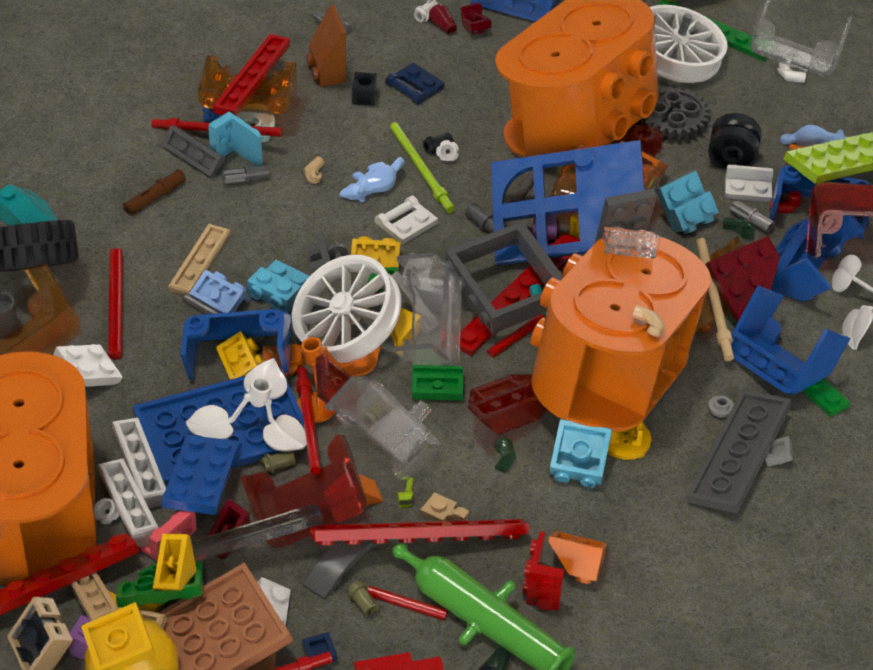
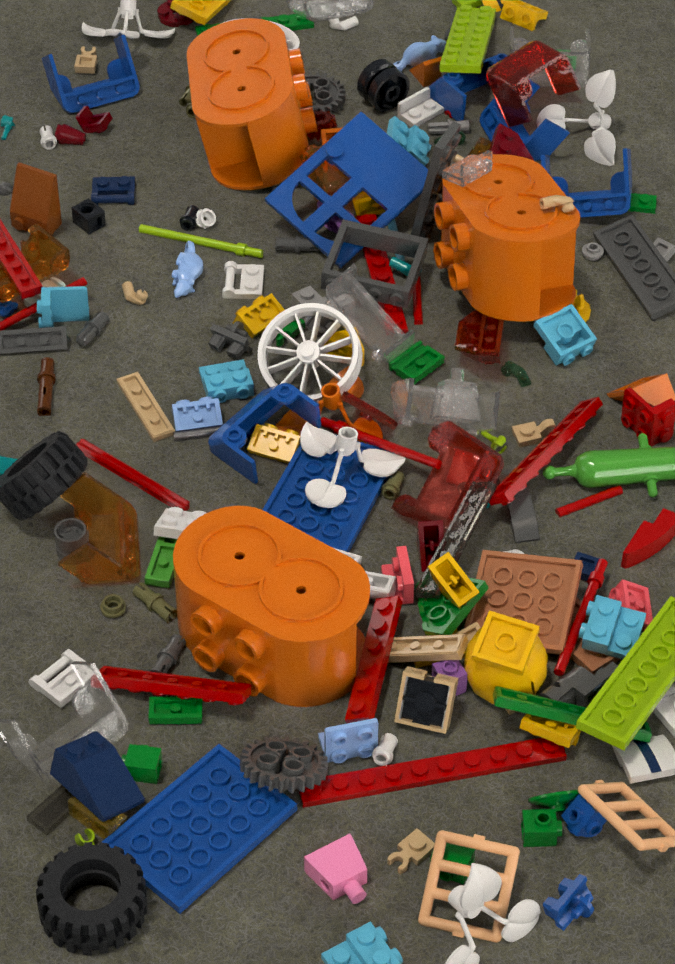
camera: 45 degrees left, 0 degrees up
(200, 474) = (374, 524): blue plate -> none
(362, 597) = (564, 518): olive pin -> none

